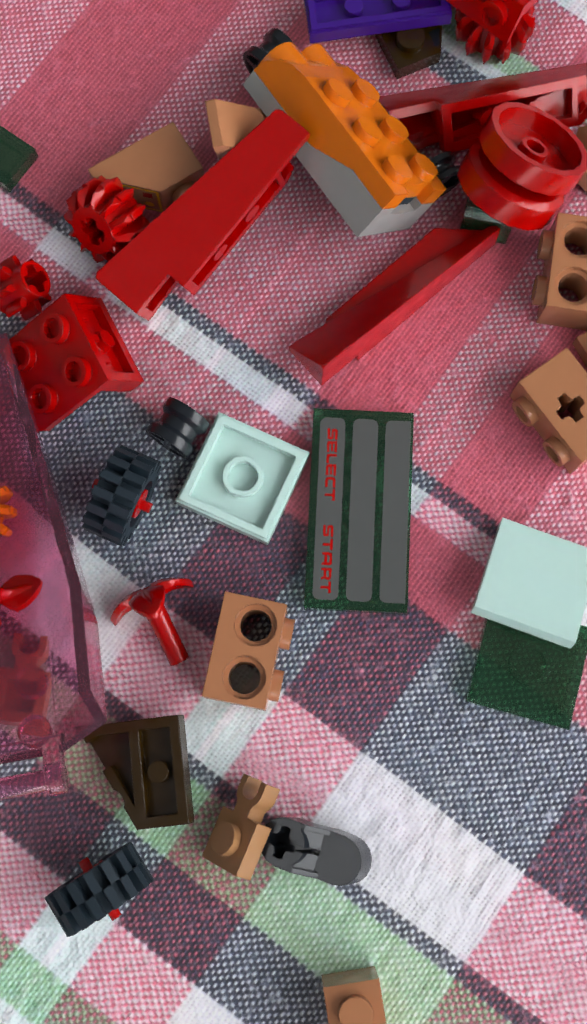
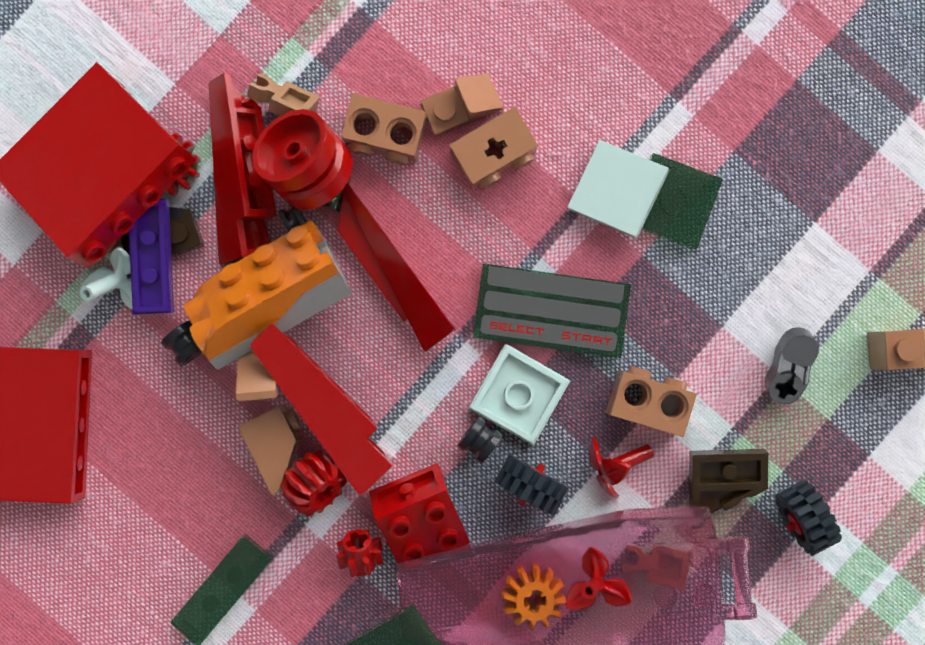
camera: 85 degrees left, 10 degrees up
(238, 832) = (775, 418): medium nougat plate -> none

